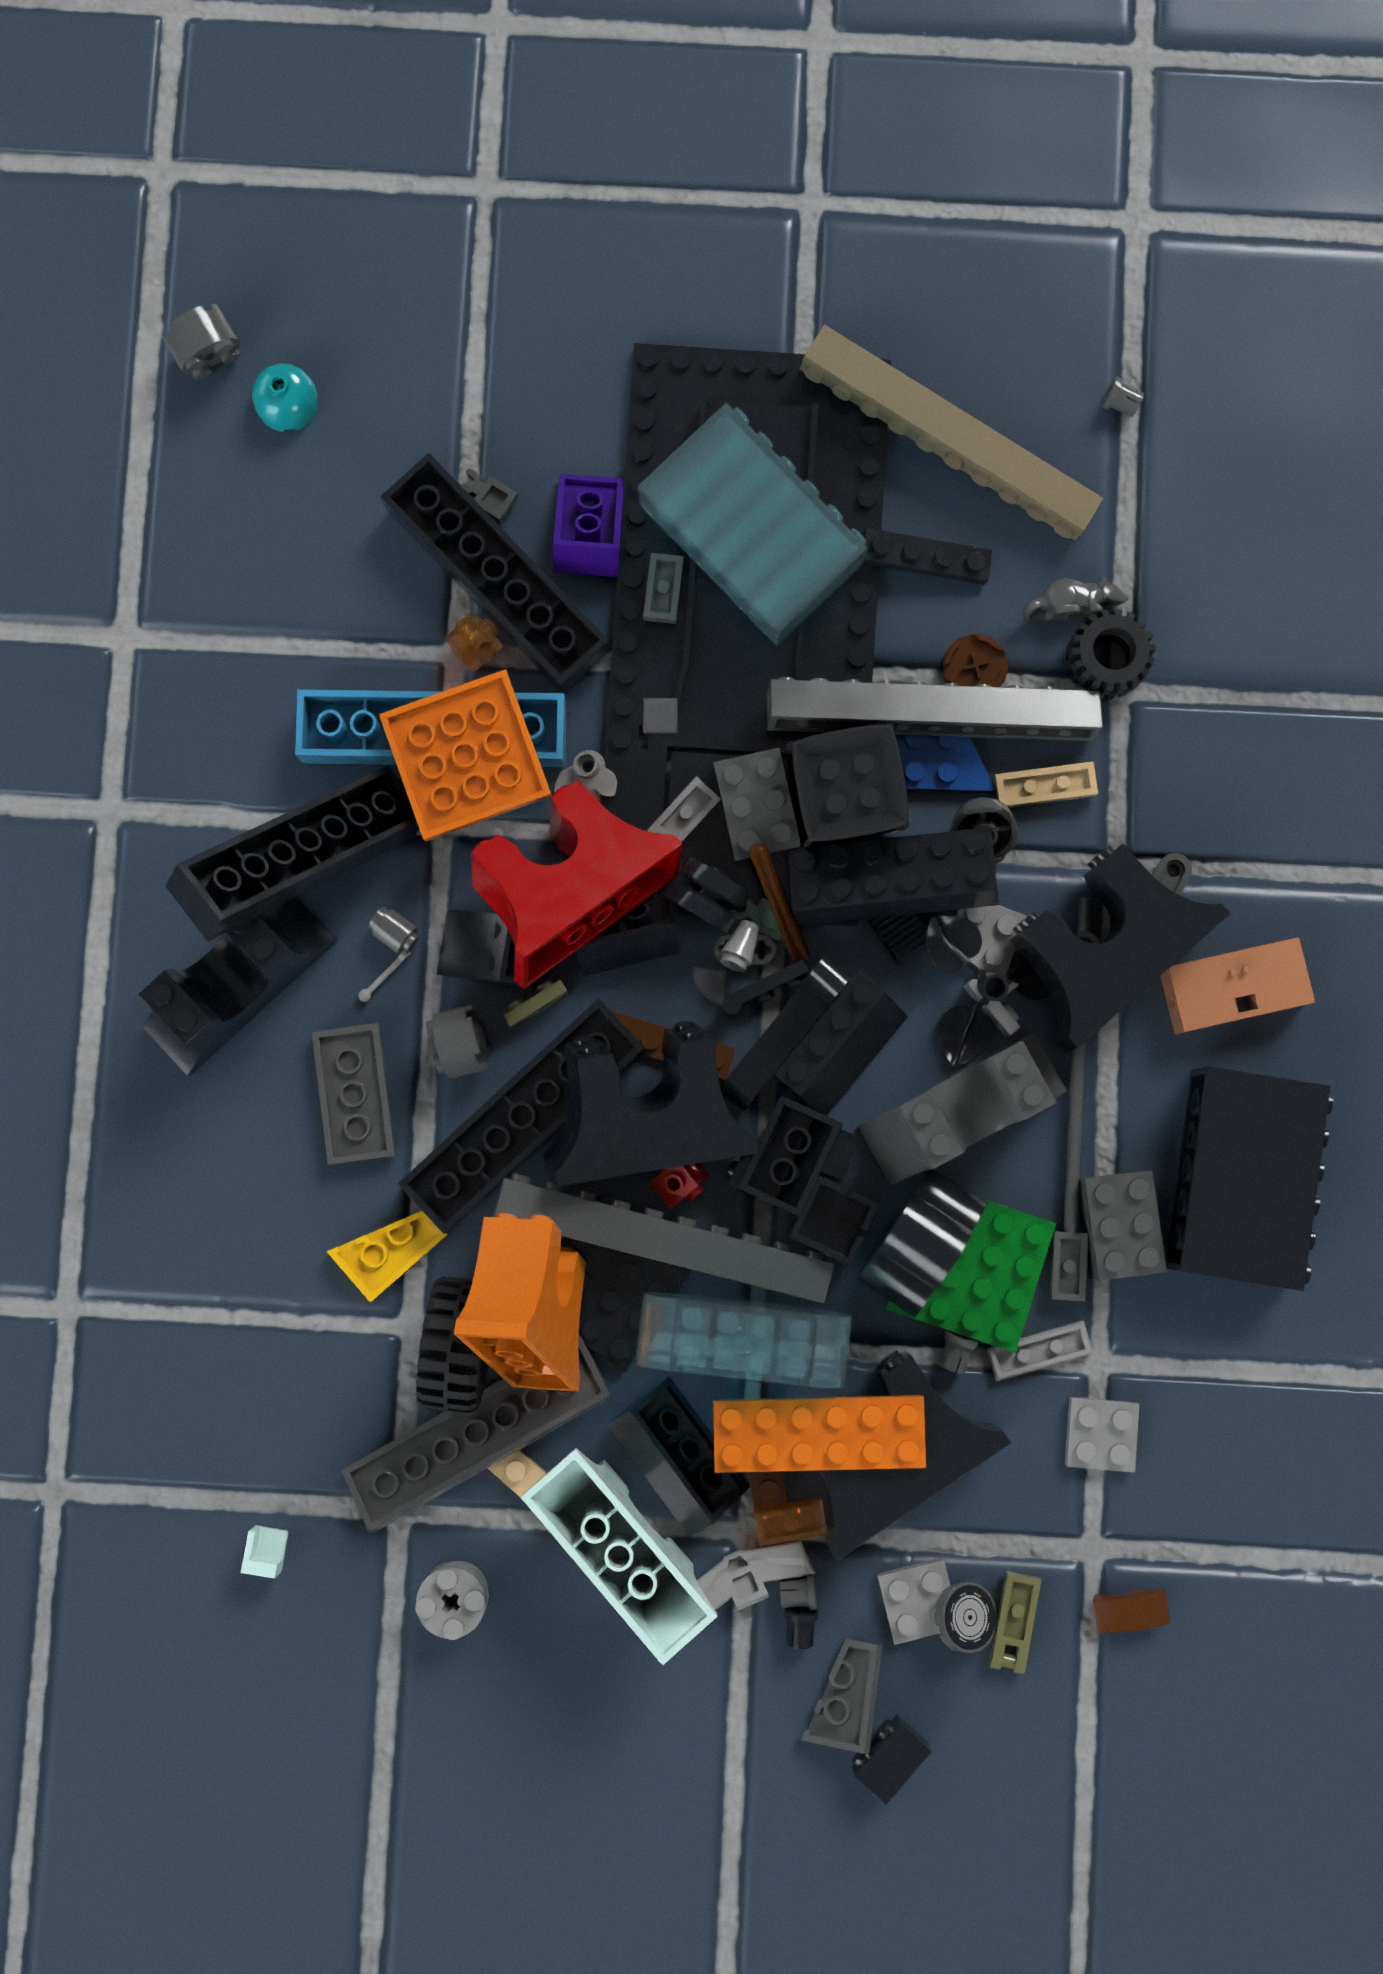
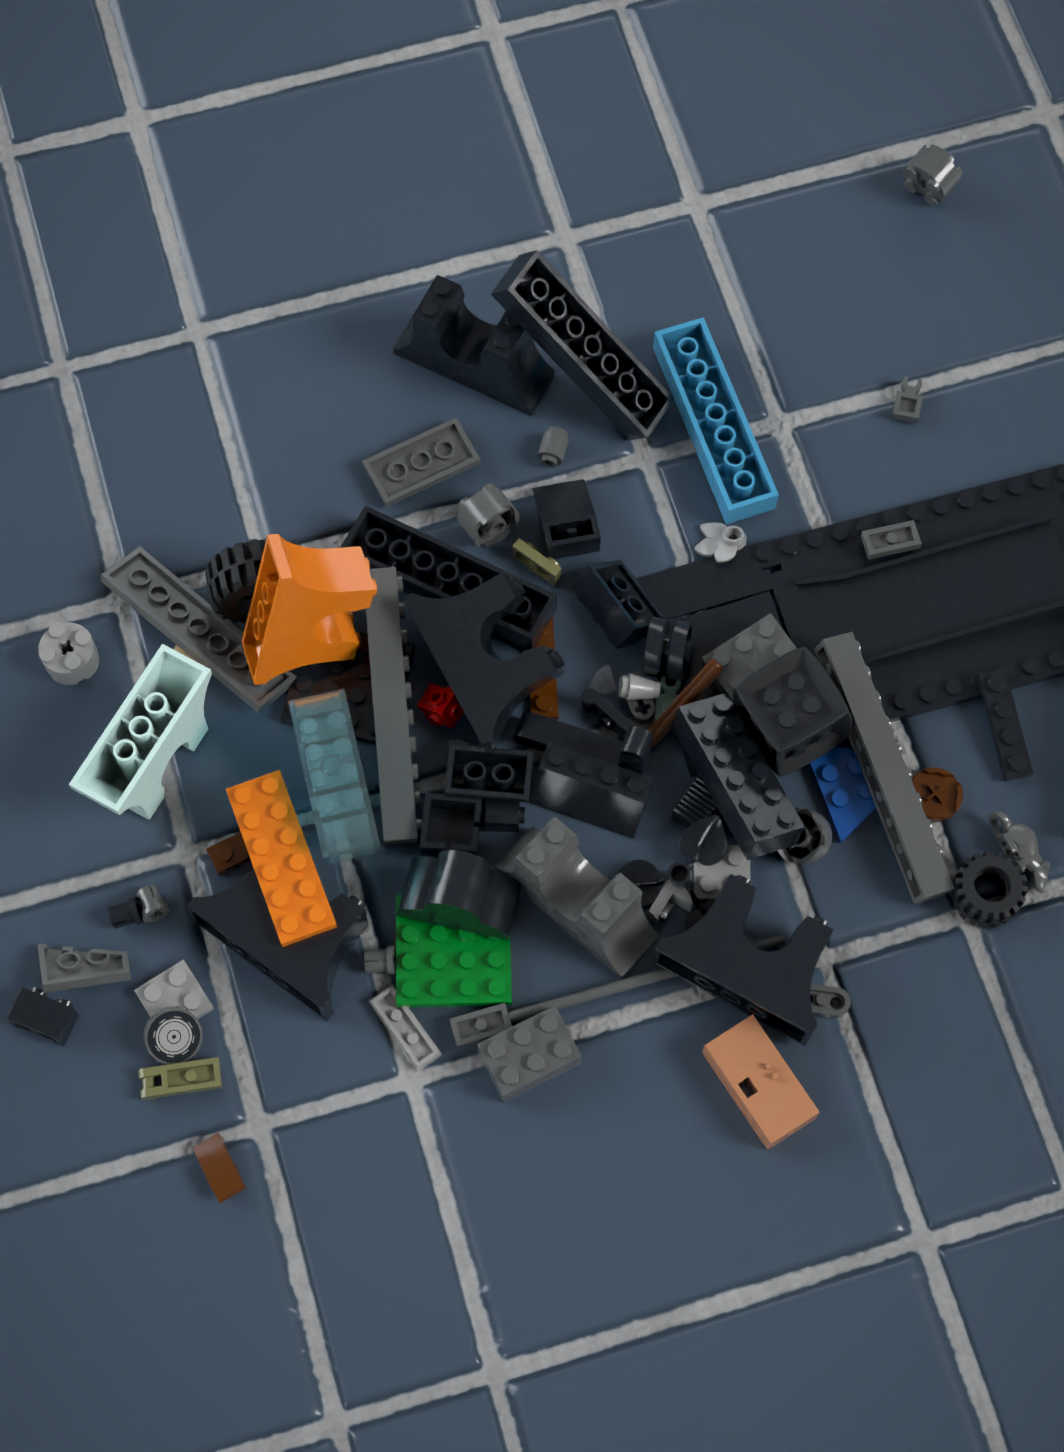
camera: 70 degrees right, 15 degrees down
(264, 1551) = (63, 515): light aqua panel -> none
(284, 397) = (918, 244): teal cylinder -> none
(365, 994) = (498, 446): light grey hinge -> none
(386, 1254) = (308, 522): yellow wing -> none
(465, 755) = (701, 440): orange plate -> none
(474, 641) = (792, 426): clear orange brick -> none
(496, 573) = (849, 424): black brick -> none
(570, 903) = (621, 547): red piece -> none
(588, 525) = (915, 474): dark purple slope -> none
(660, 715) = (792, 571): clear tile -> none
(677, 1456) = (237, 757): black slope -> none
(686, 810) = (715, 612): light grey plate -> none
(745, 1572) = (149, 857): light grey plate -> none
(752, 523) = (965, 577): clear light blue brick -> none
(790, 1522) = (203, 873): clear orange plate -> none
(1046, 784) = (862, 878): tan plate -> none
(1102, 1434) = (354, 1100): light grey plate -> none
(1248, 1177) = (605, 1138): black brick -> none

